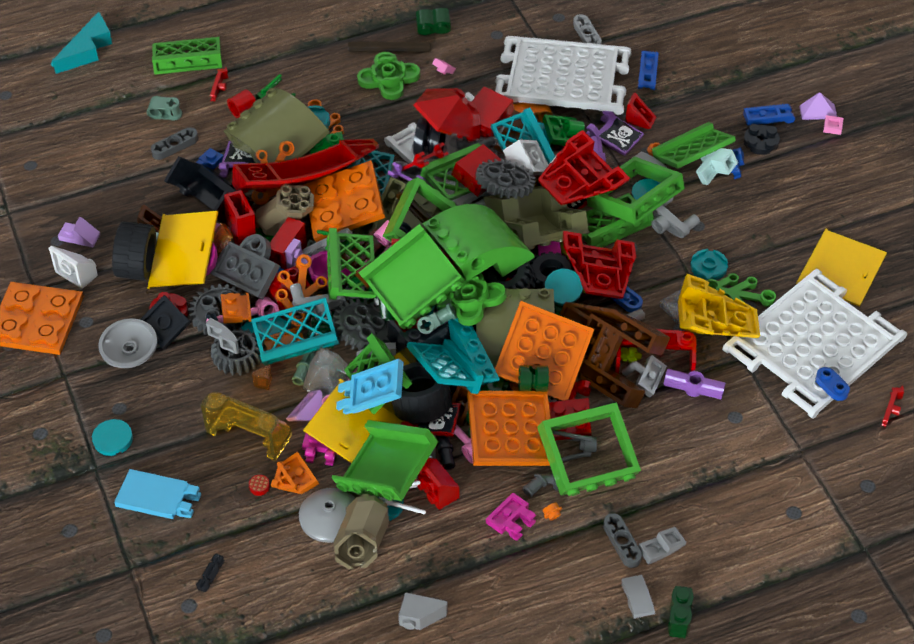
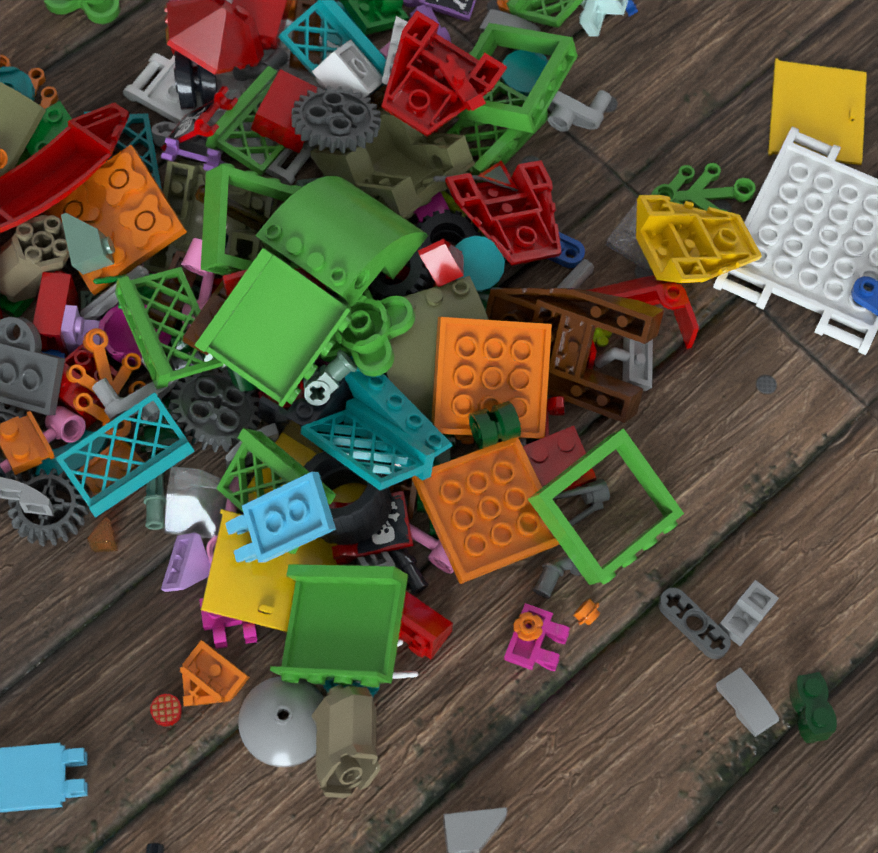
camera: 25 degrees left, 15 degrees up
(224, 412) = (73, 611): clear yellow windscreen -> none
(320, 208) = (87, 245): none -> sand green slope
(507, 509) = (525, 633): none -> orange plate
(537, 272) = (443, 262): none -> slope
(594, 178) = (460, 84): none -> red piece
(601, 243) = (496, 174): none -> dark grey piece
(694, 383) = (716, 354): medium lavender piece -> none
(709, 264) = (646, 161): teal tile -> none

